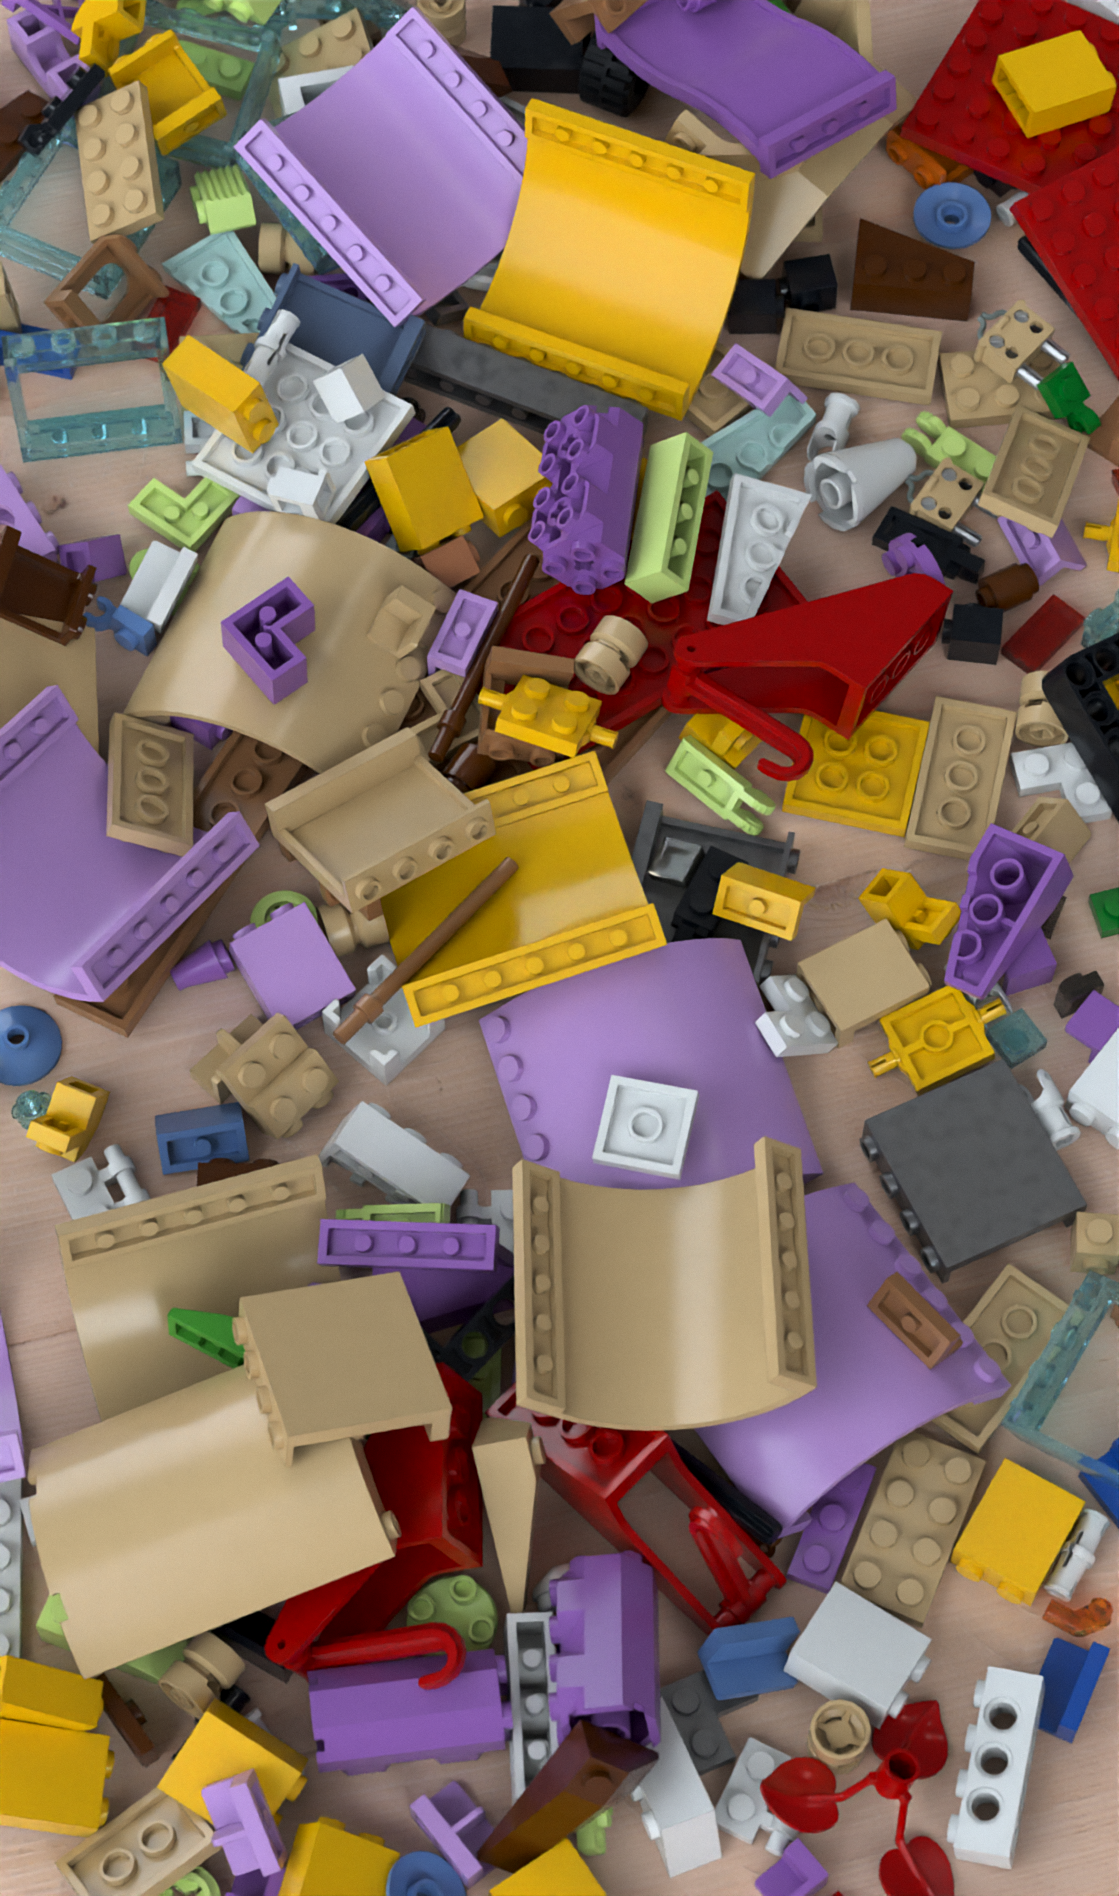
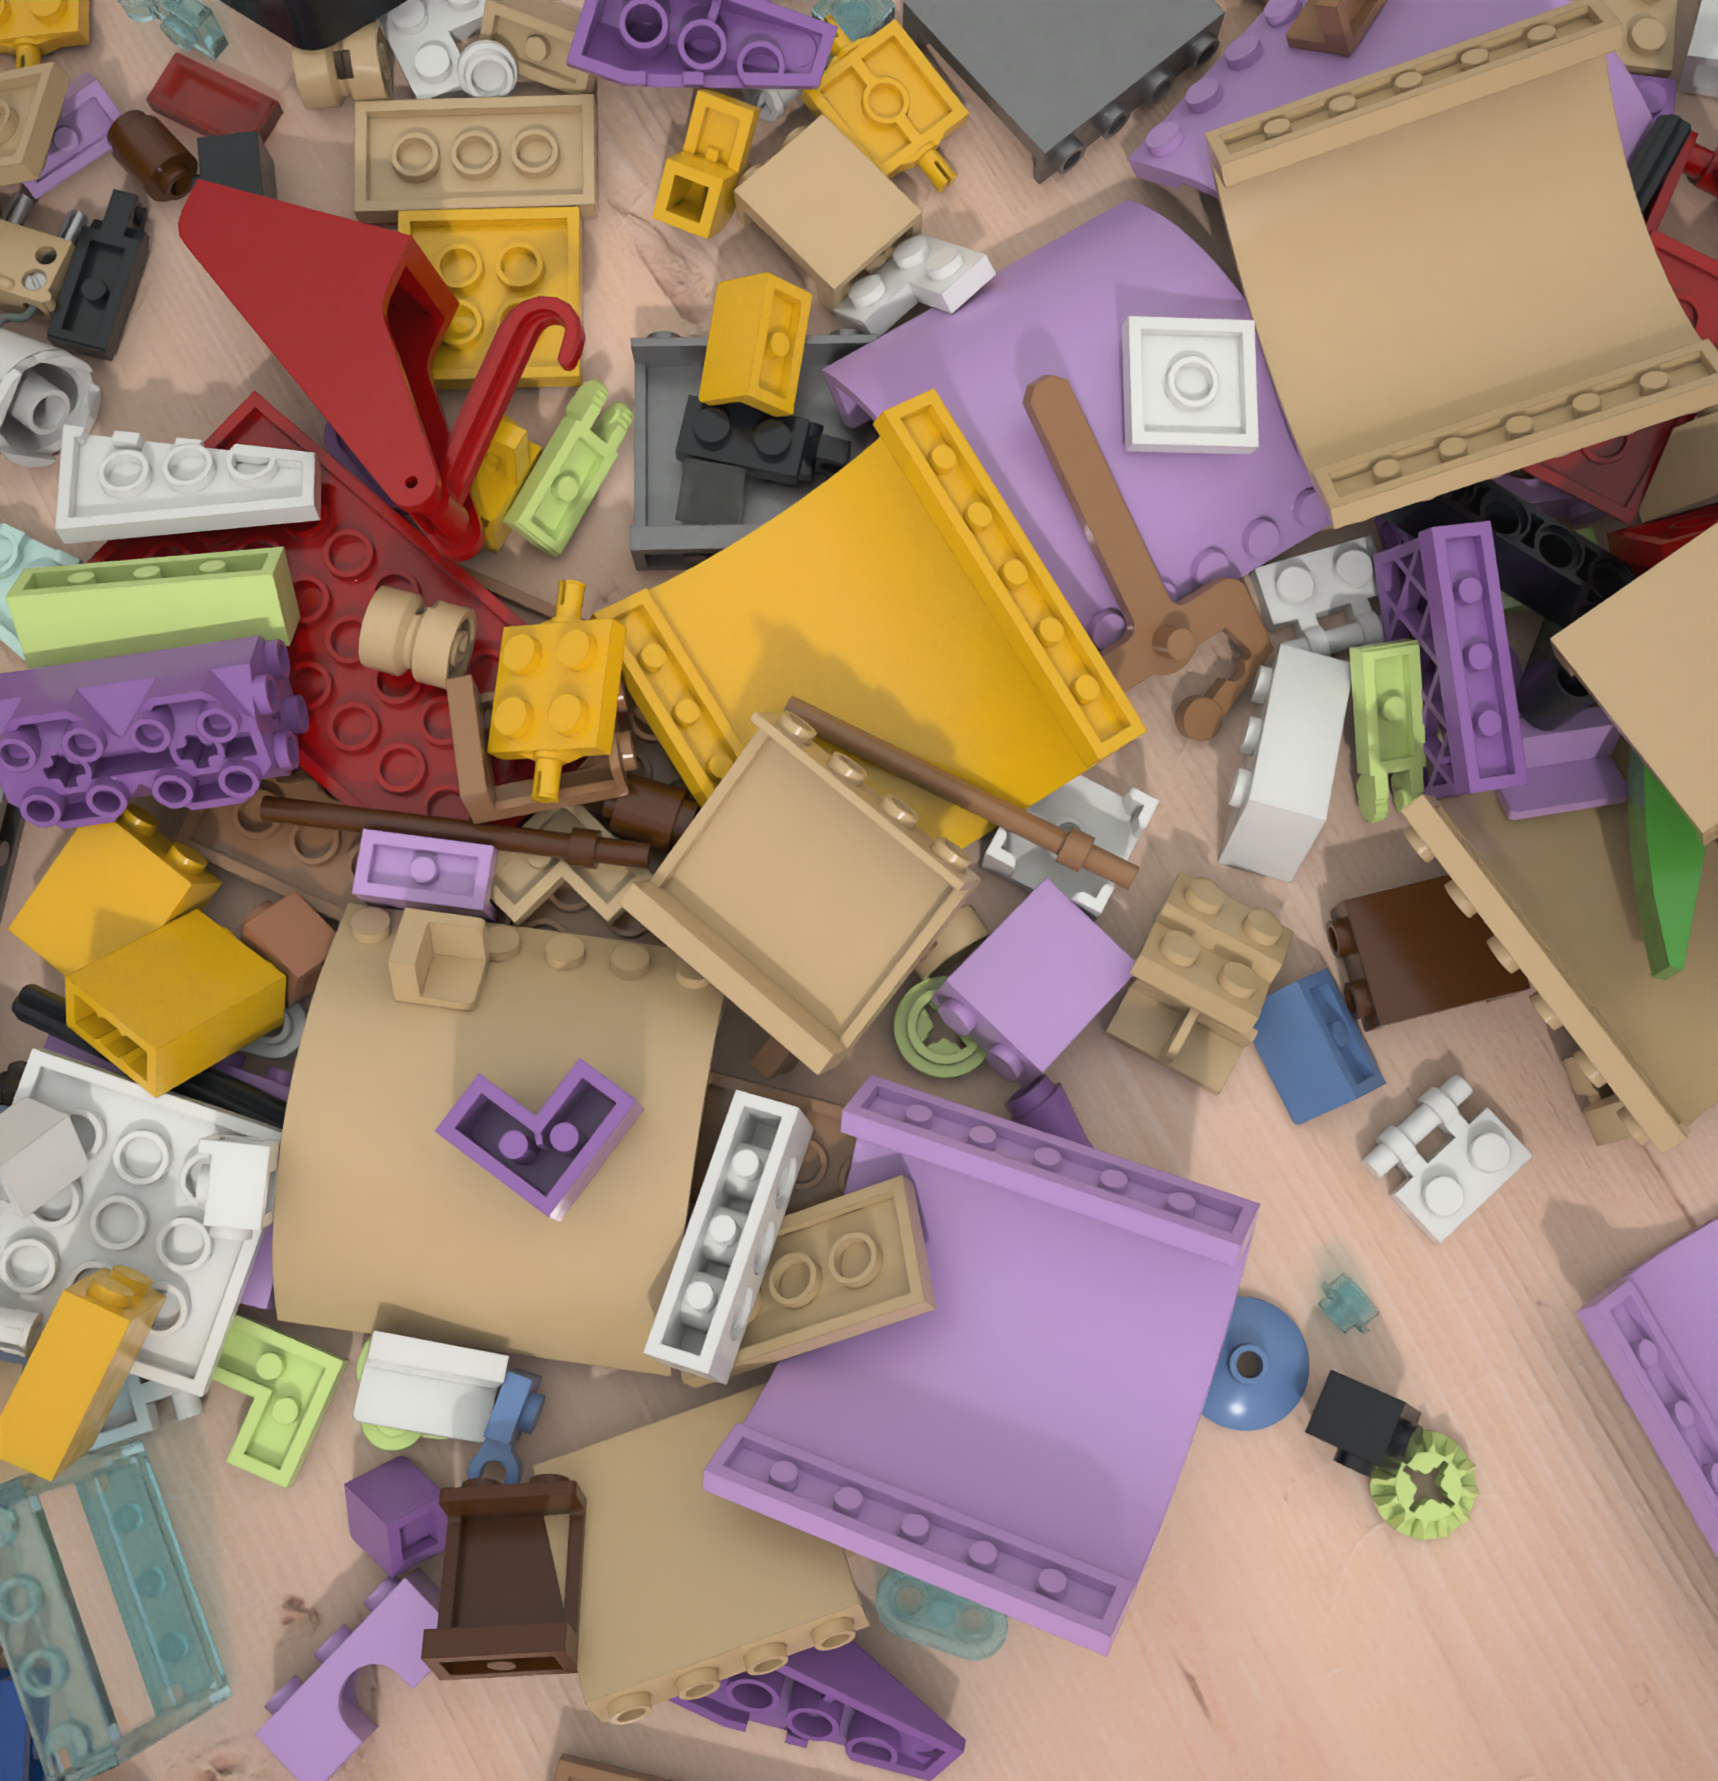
camera: 105 degrees left, 15 degrees up
(70, 1118) = (1363, 1240): yellow brick -> none
(187, 745) = (730, 1237): none -> white brick
(498, 1097) = (1158, 632): none -> medium nougat piece
(906, 558) = (156, 271): medium lavender plate -> none
(1020, 795) = (487, 70): none -> white plate

